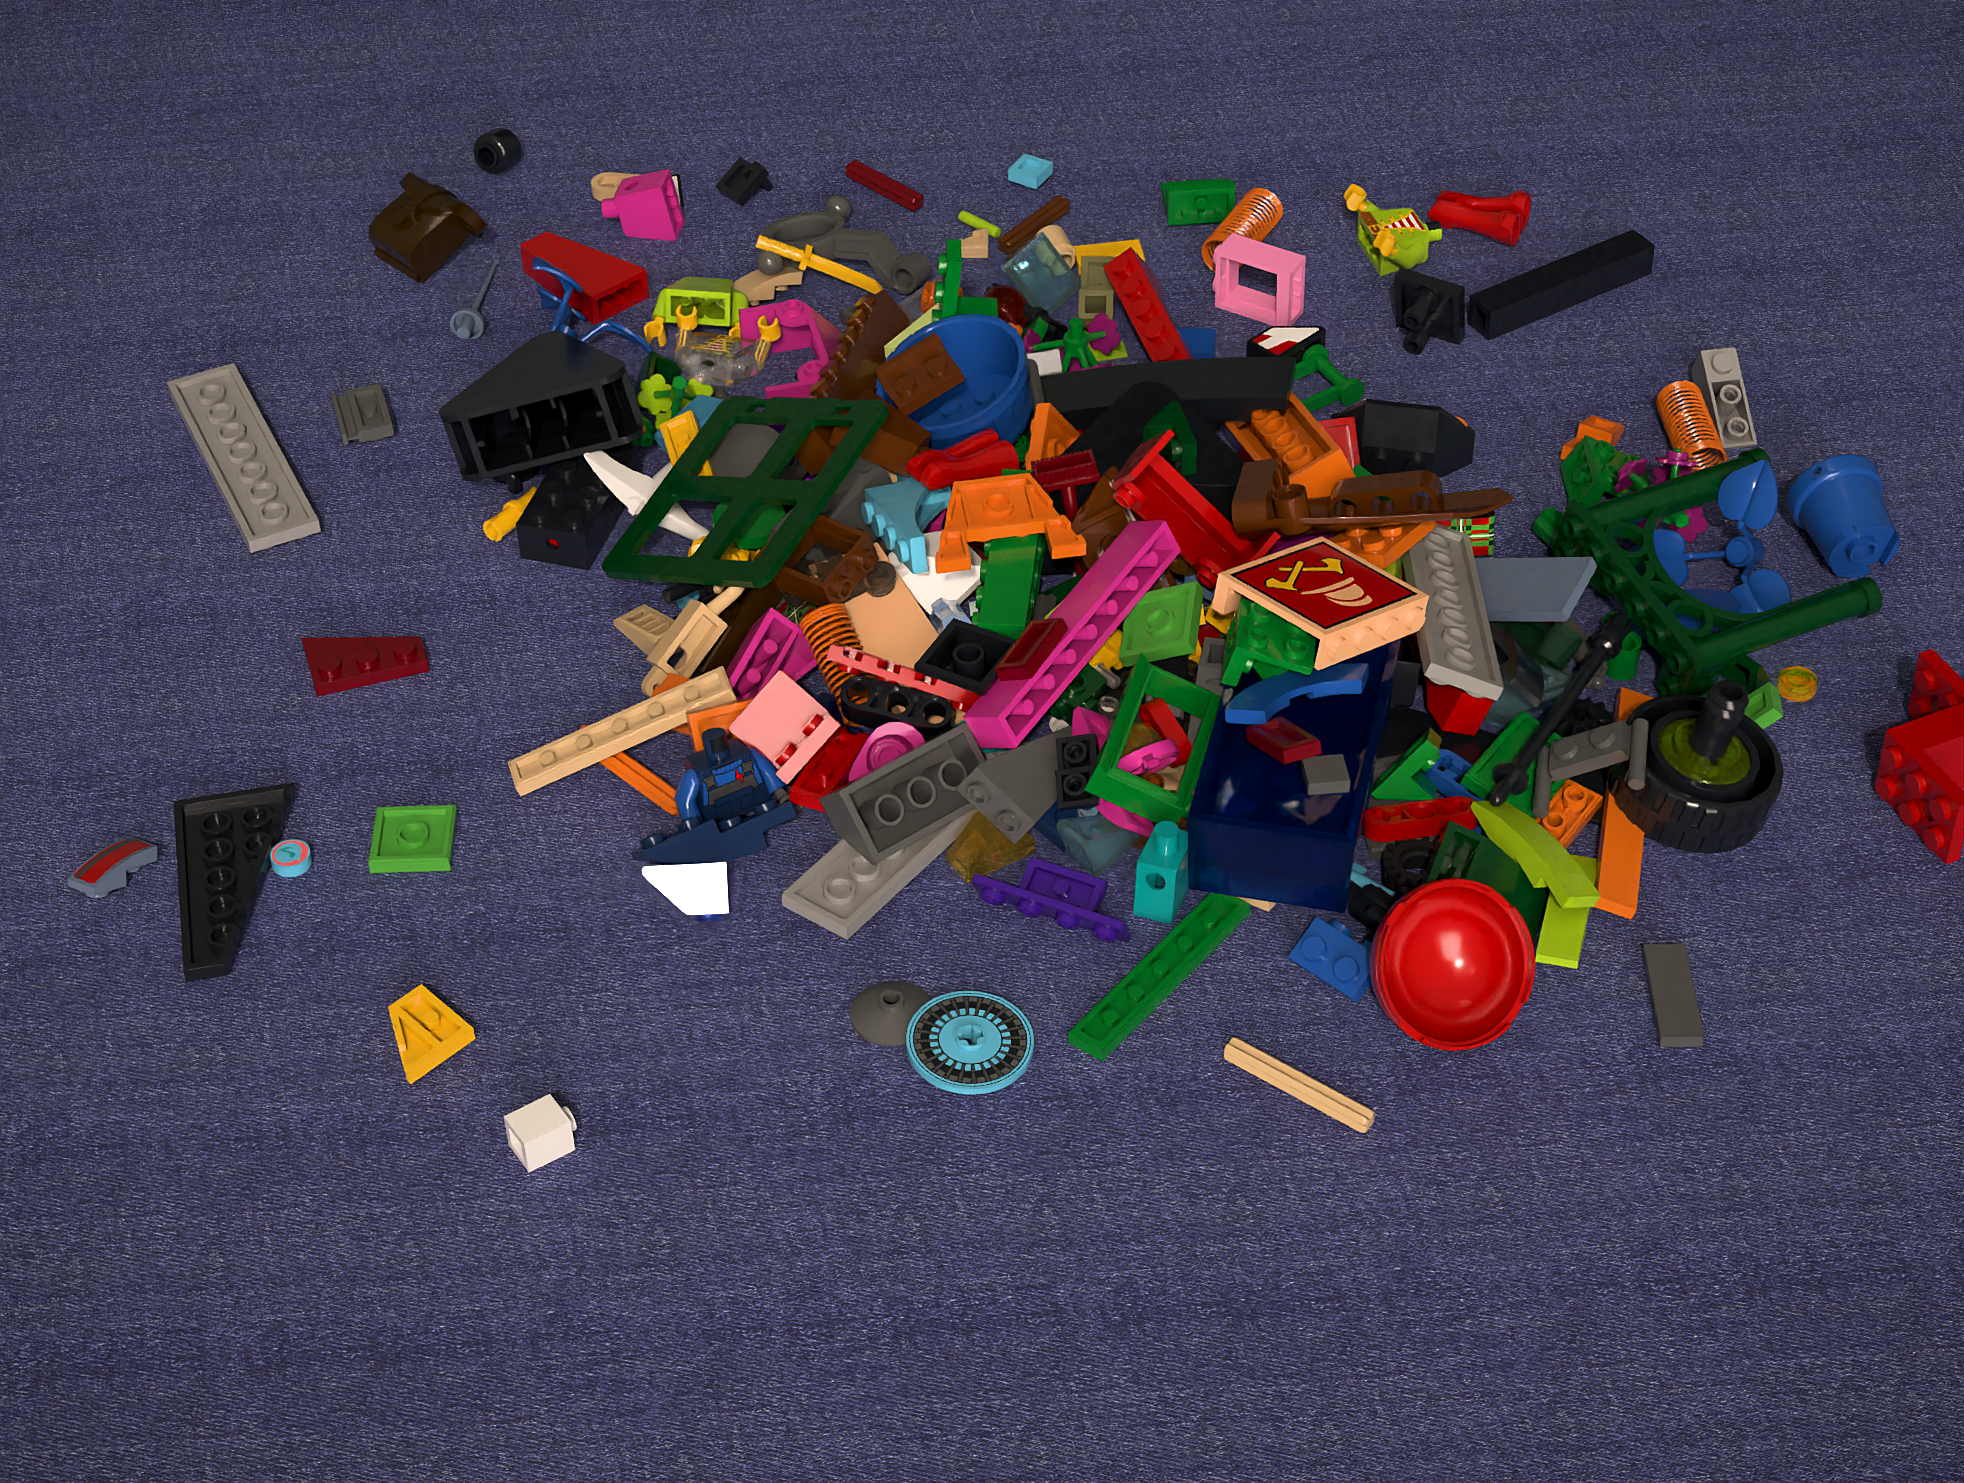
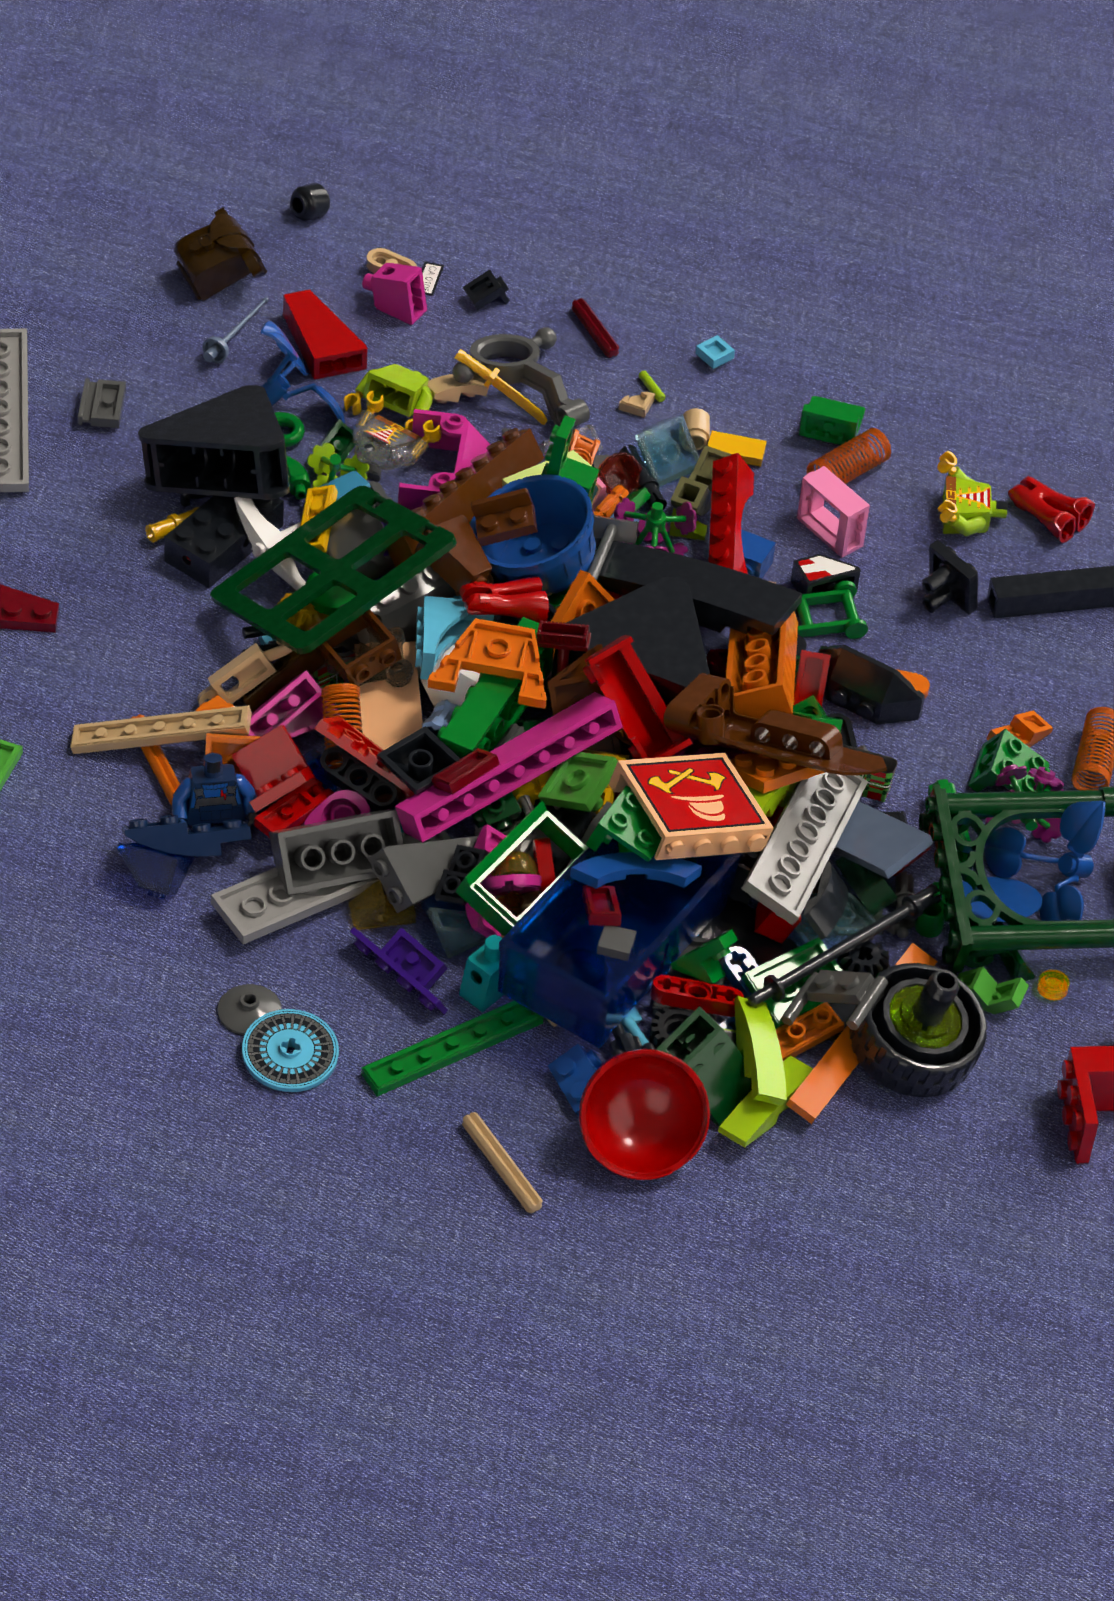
camera: 15 degrees right, 5 degrees up
(644, 627) = (223, 640): tan slope -> none
(1031, 225) = (693, 400): reddish brown axle -> none
(1183, 445) = (657, 631): dark green slope -> none
(1672, 995) = (808, 1191): dark grey tile -> none

